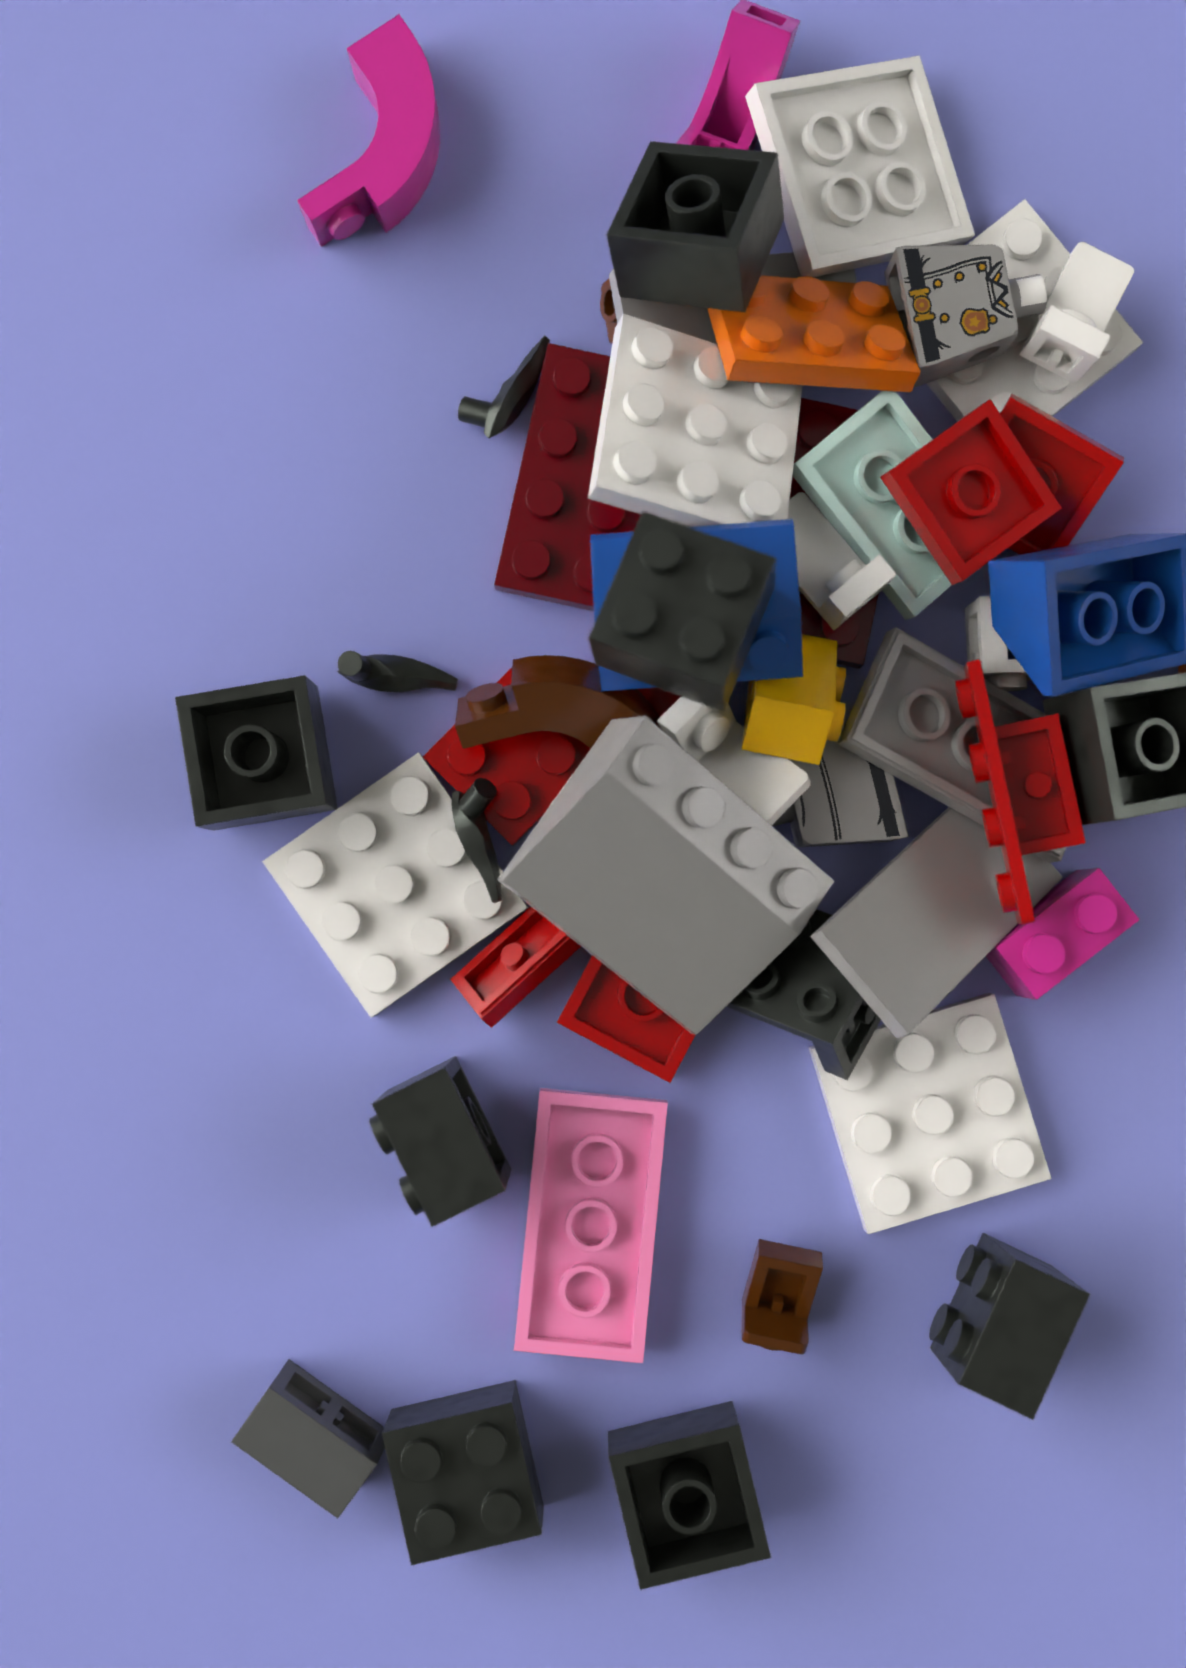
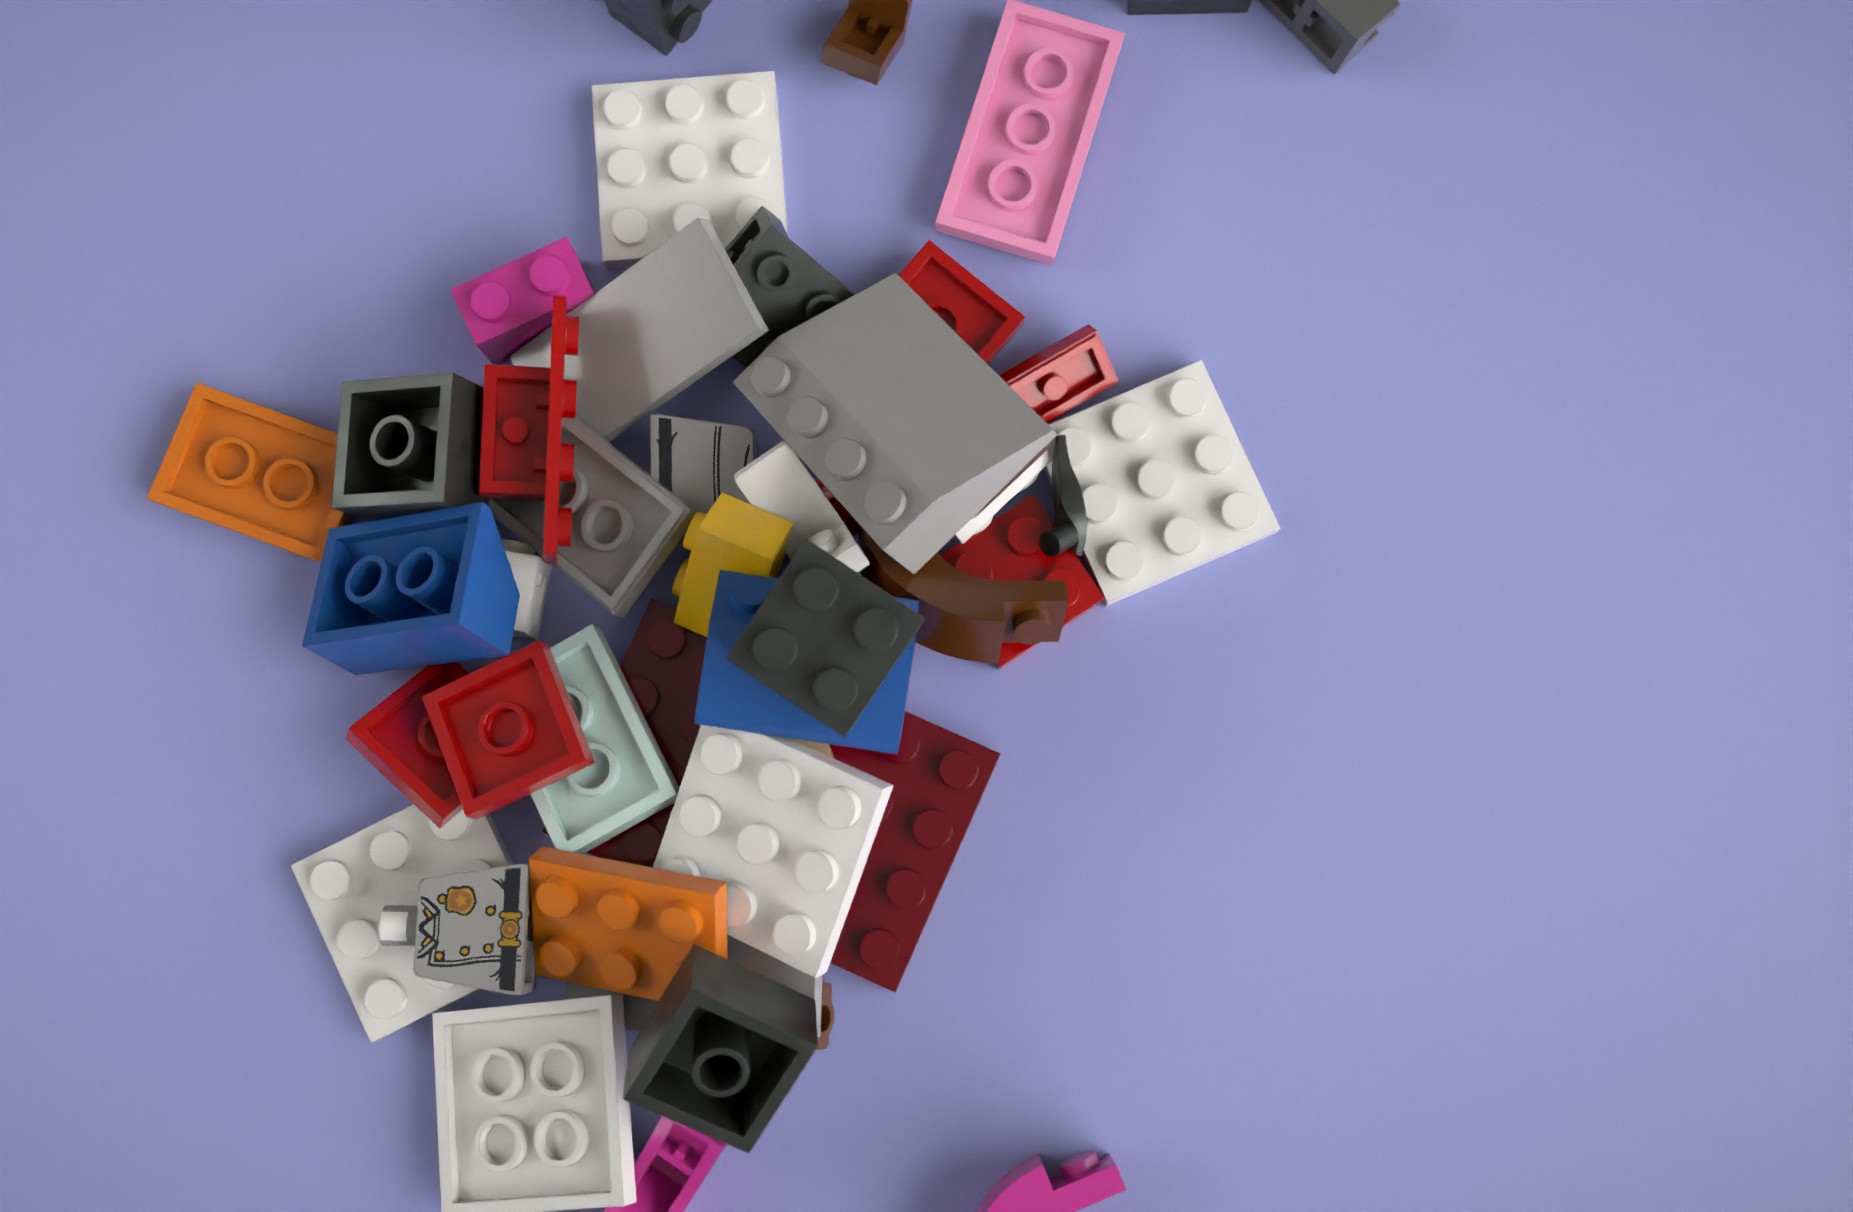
camera: 165 degrees left, 5 degrees down
(256, 753) = (1268, 625): pearl dark grey brick -> none
(392, 673) = (1117, 688): pearl dark grey bar -> none
(440, 1142) = (1156, 223): pearl dark grey brick -> none
(511, 397) = (944, 944): pearl dark grey bar -> none
(828, 567) = (663, 688): white bracket -> none
(1072, 328) = (350, 898): white bracket -> none

